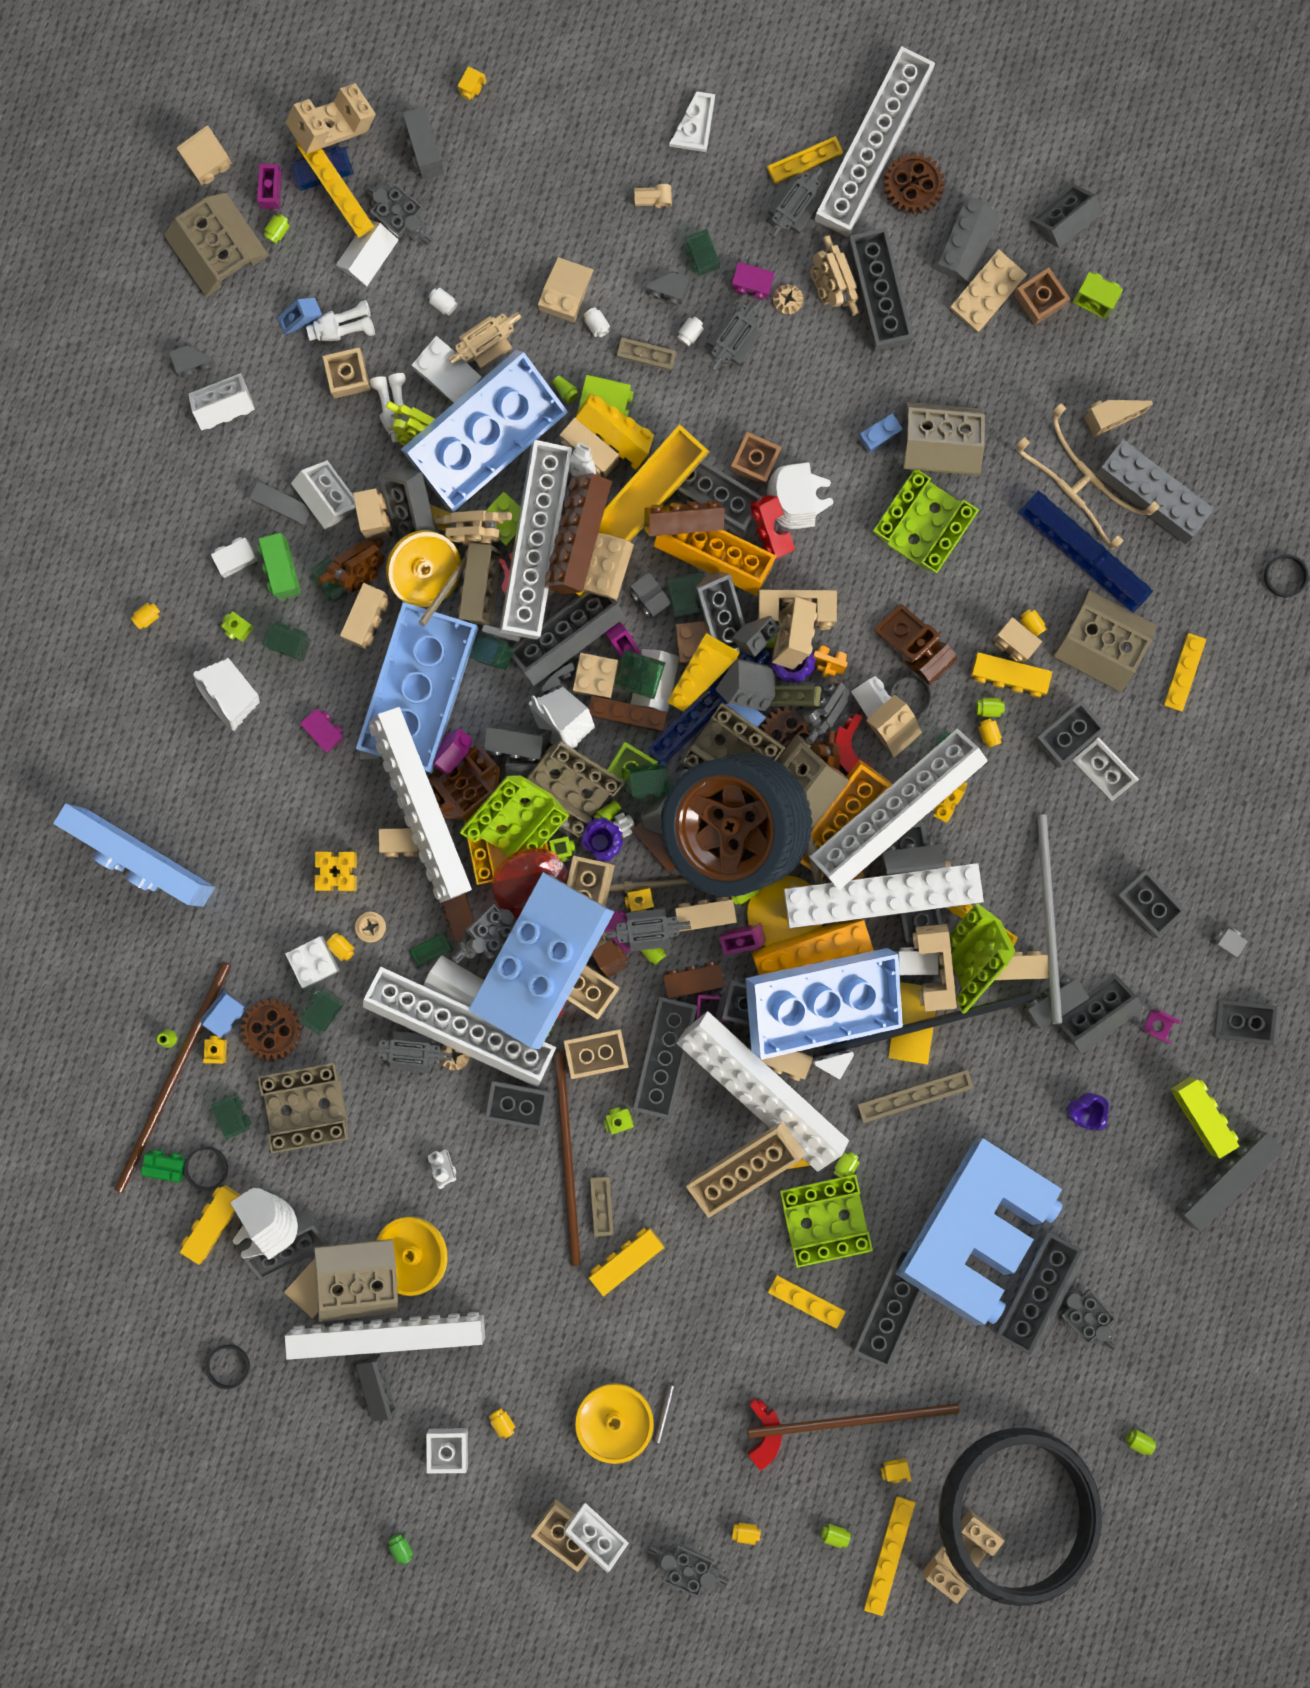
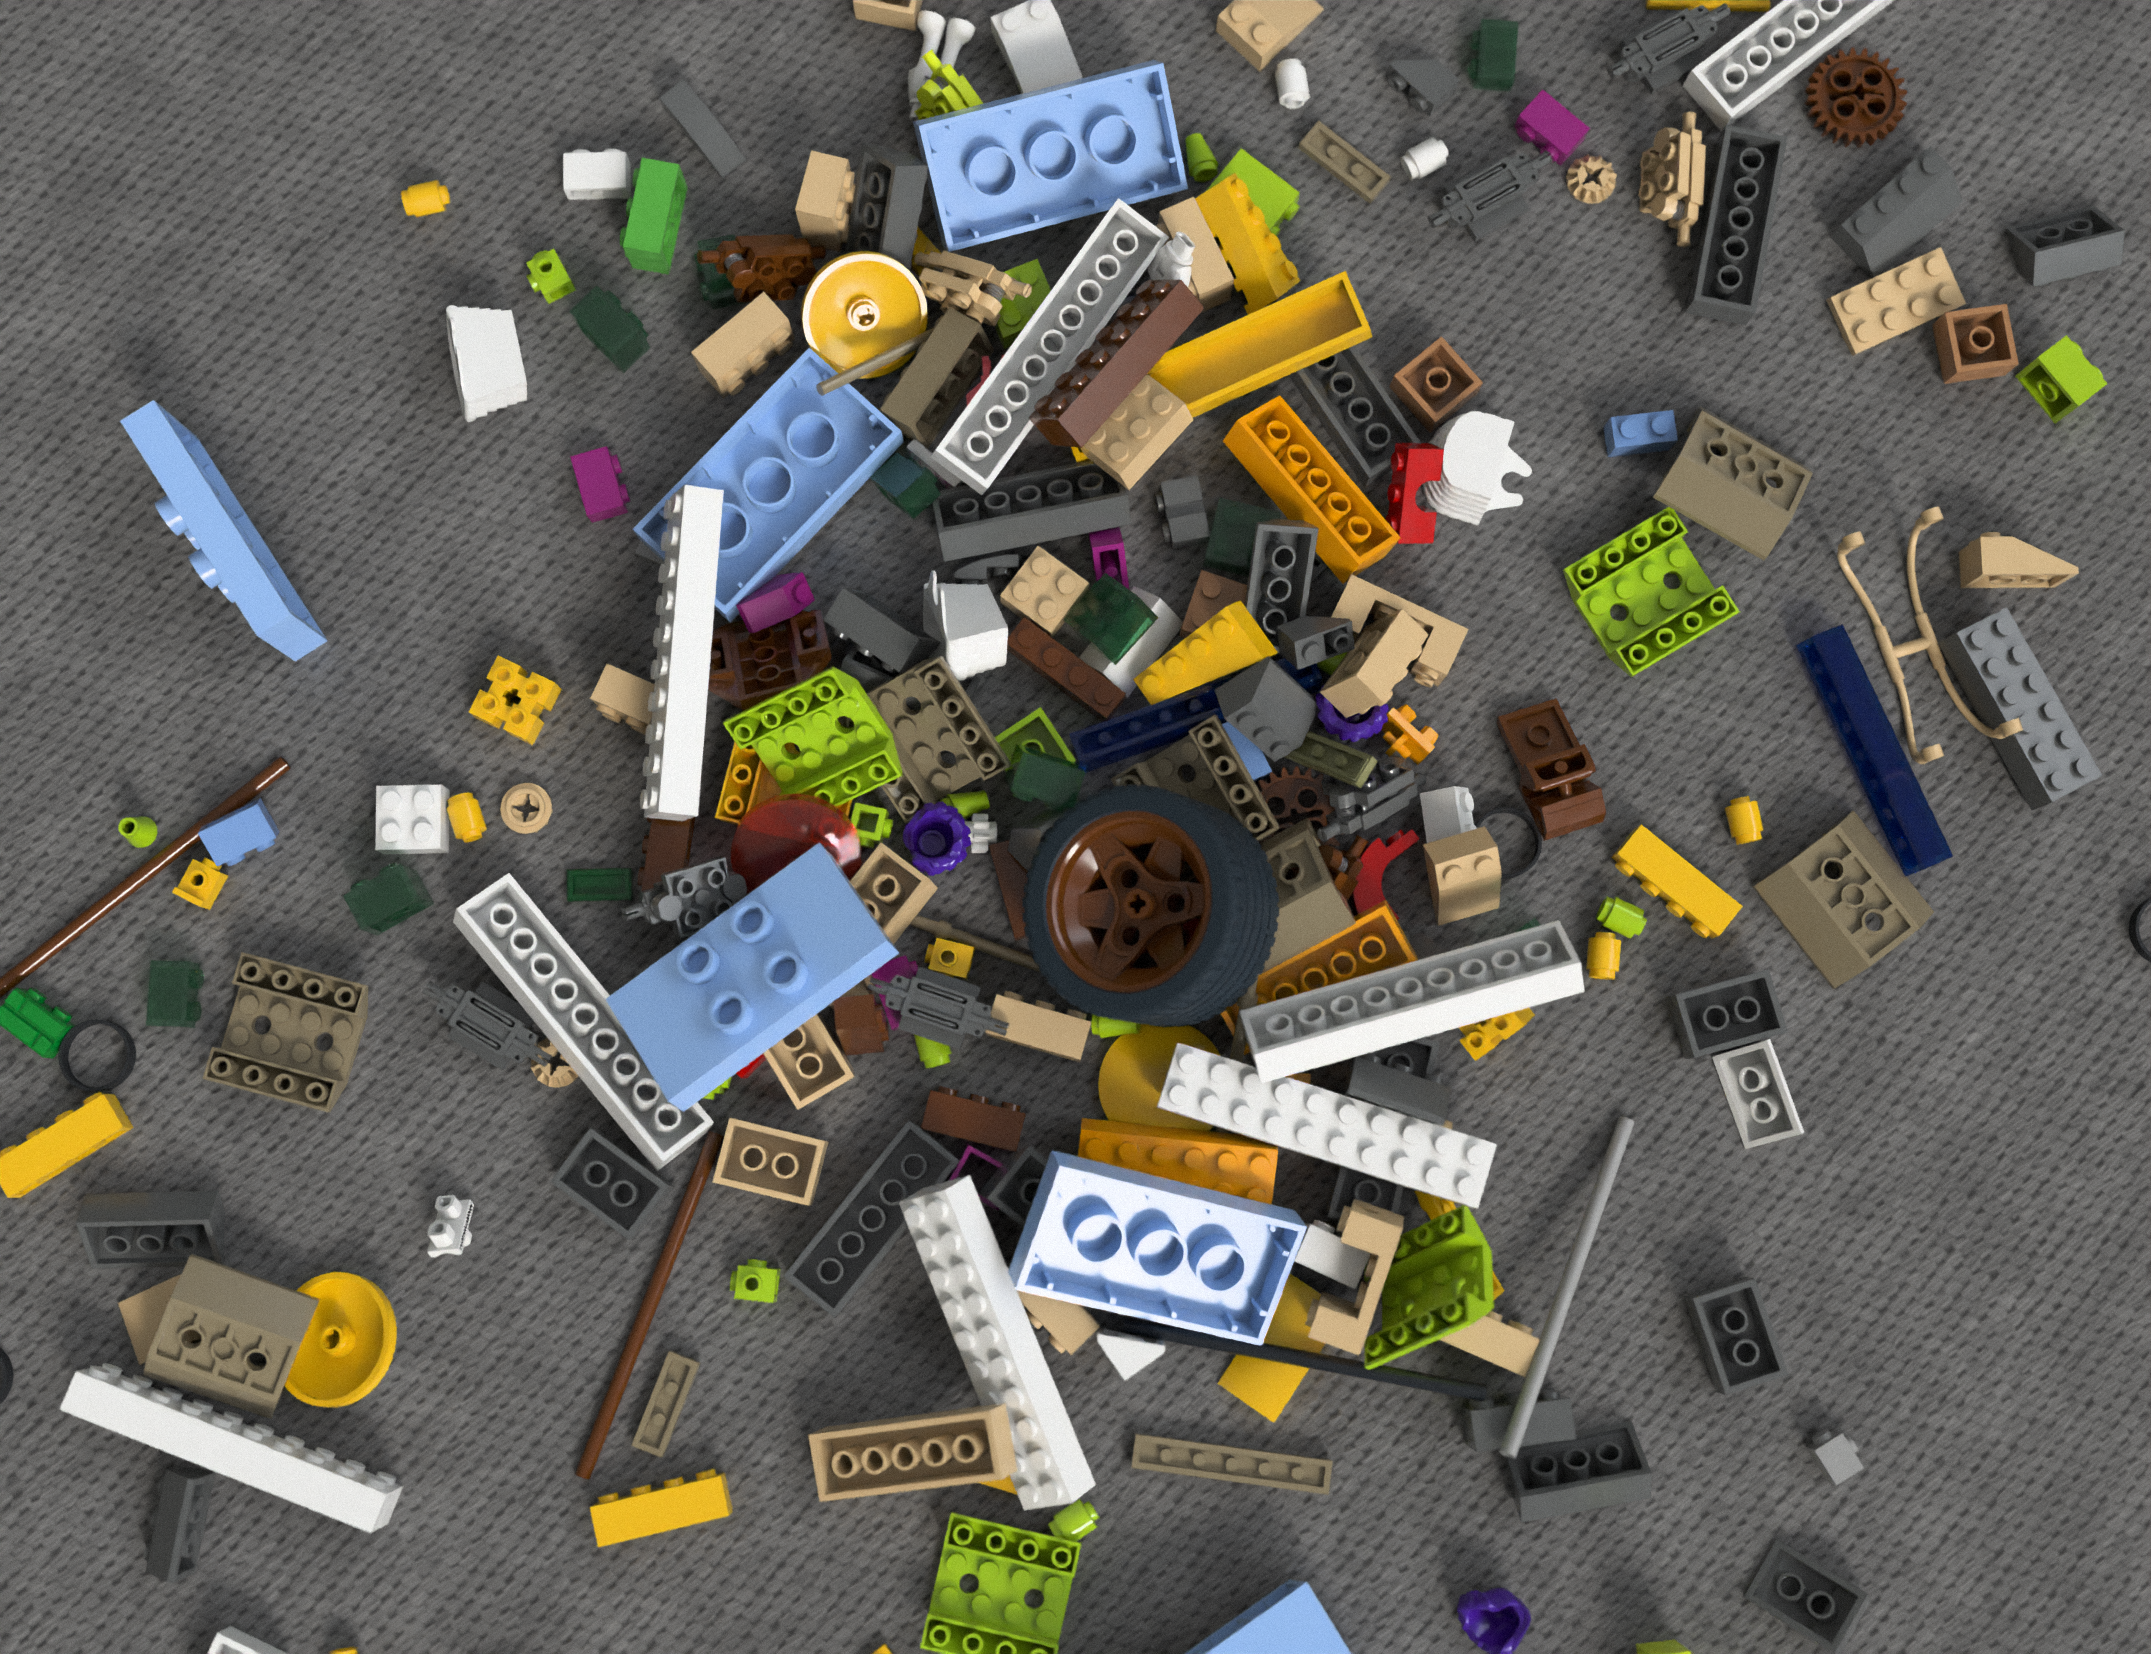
camera: 20 degrees right, 5 degrees down
(261, 1015) = (297, 863): reddish brown gear -> none
(265, 1221) = (138, 1180): white piece -> none
(324, 493) = (772, 143): white slope -> none
(453, 981) = (607, 946): white slope -> none
(486, 341) = (1116, 34): tan piece -> none
(684, 518) = (1287, 415): reddish brown brick -> none
(742, 939) = (1078, 1091): magenta brick -> none
(1016, 641) = (1708, 834): tan brick -> none
(1167, 1021) = (1680, 1535): magenta piece -> none
(1184, 672) = (1945, 1004): yellow plate -> none

